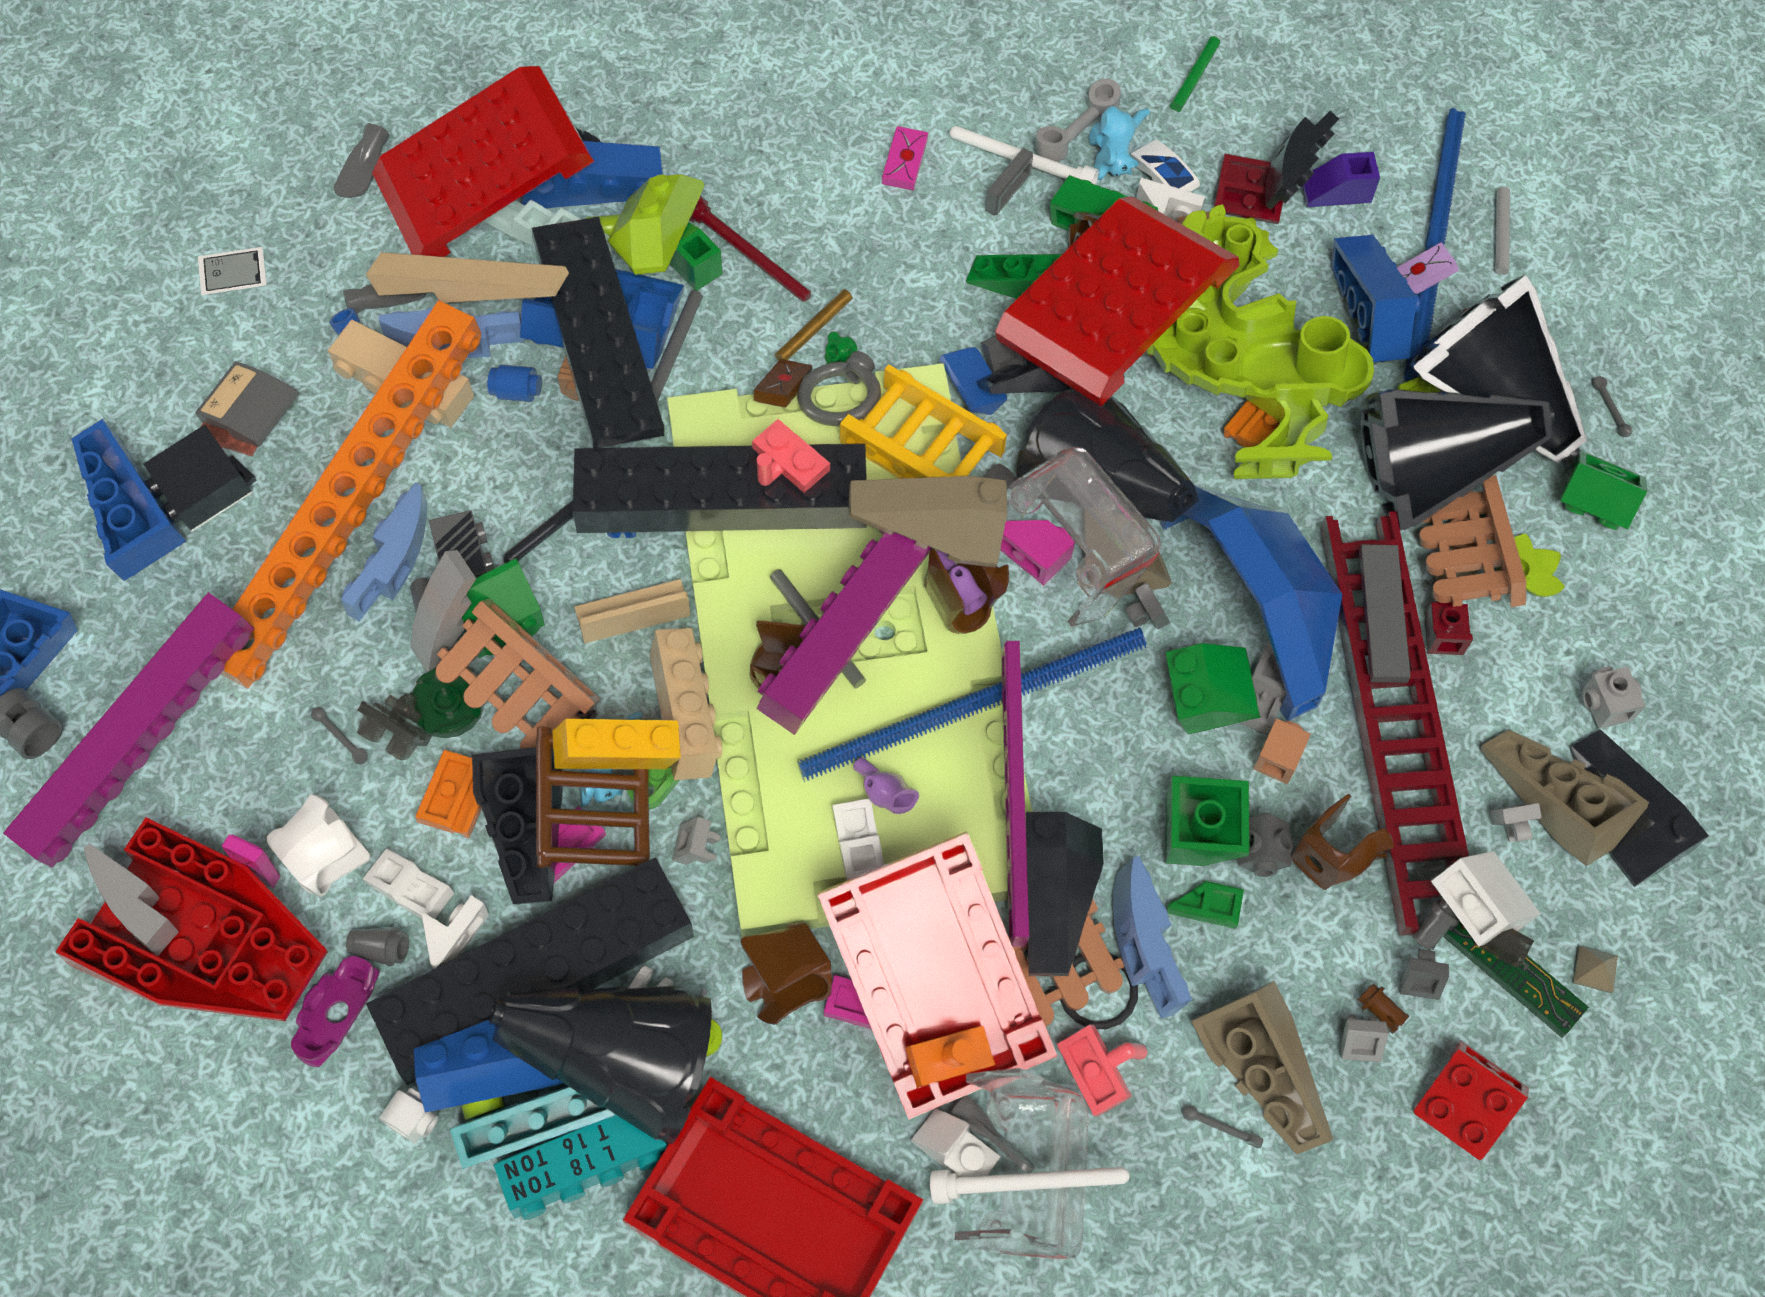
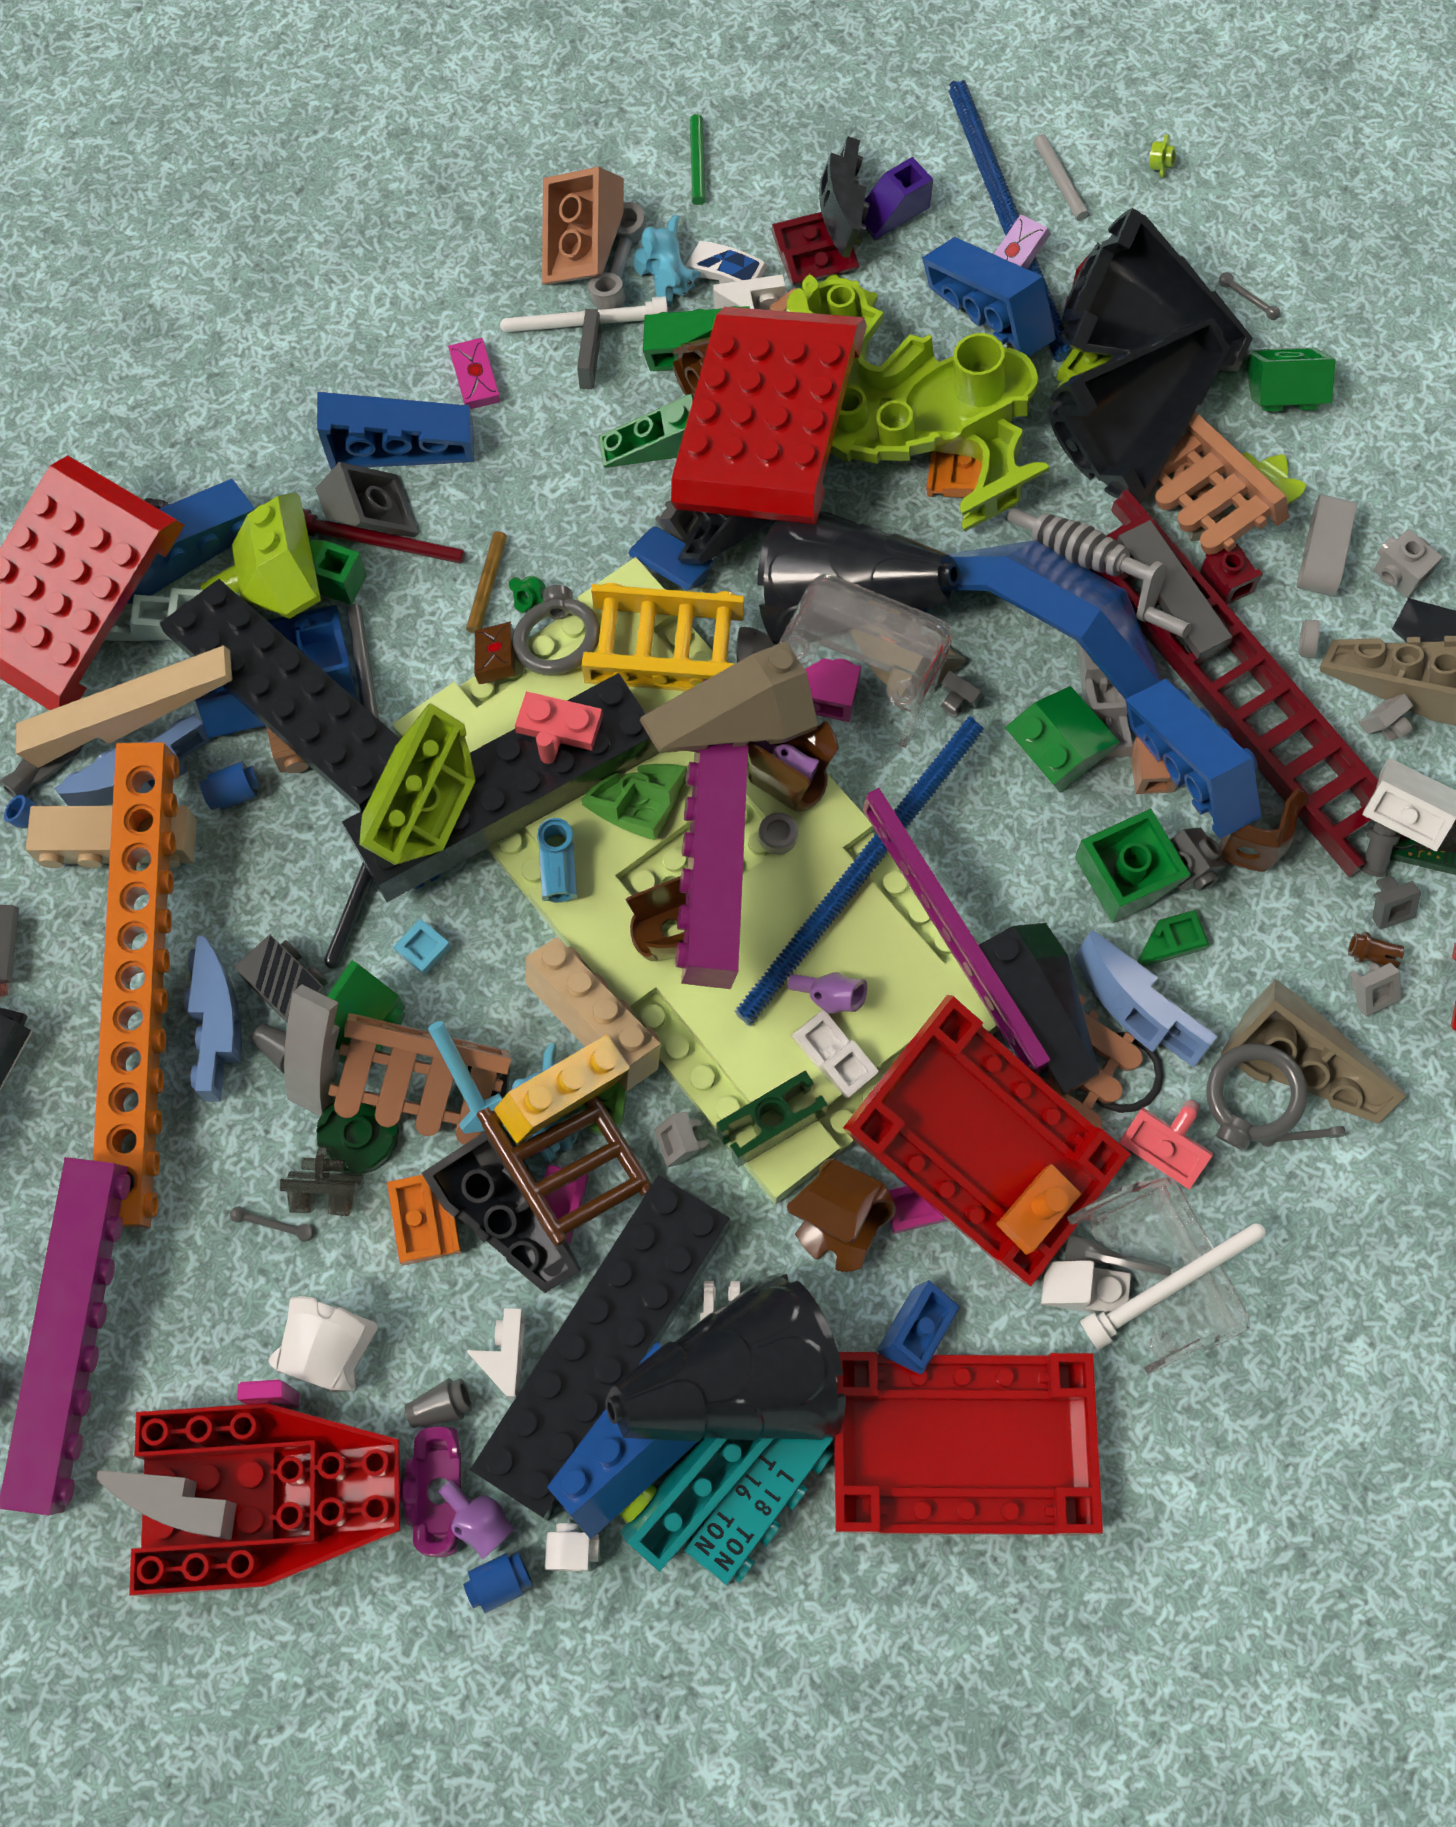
camera: 25 degrees left, 5 degrees up
(336, 1107) = (497, 1582): none -> blue brick
(350, 1051) = (477, 1520): none -> medium lavender piece
(407, 885) = (431, 1331): white slope -> none
(546, 688) = (462, 1078): none -> medium azure piece
(585, 583) = (422, 947): none -> medium azure plate
(632, 611) = (483, 949): tan panel -> none
(644, 453) = (420, 790): none -> lime wedge
(727, 570) = (557, 863): none -> dark azure piece
(756, 214) = (366, 499): none -> dark grey slope
(764, 848) = (775, 1101): none -> dark green piece
(795, 1100) = (919, 1327): none -> blue slope
(805, 612) = (646, 861): dark grey bar -> none
(808, 171) = (393, 431): none -> blue wedge
(820, 554) = (639, 799): none -> bright green brick
(922, 640) = (778, 833): none -> light grey tile
(1061, 77) = (579, 223): none -> nougat slope
(1165, 1090) = (1238, 1131): none -> dark grey piece
(1311, 756) = (1197, 754): none -> blue wedge
(1336, 551) = (1094, 550): none -> light grey piece
(1485, 716) = (1309, 638): none -> light grey tile
(1550, 646) = (1327, 545): none -> light grey beam
(1603, 253) = (1162, 155): none -> lime plate

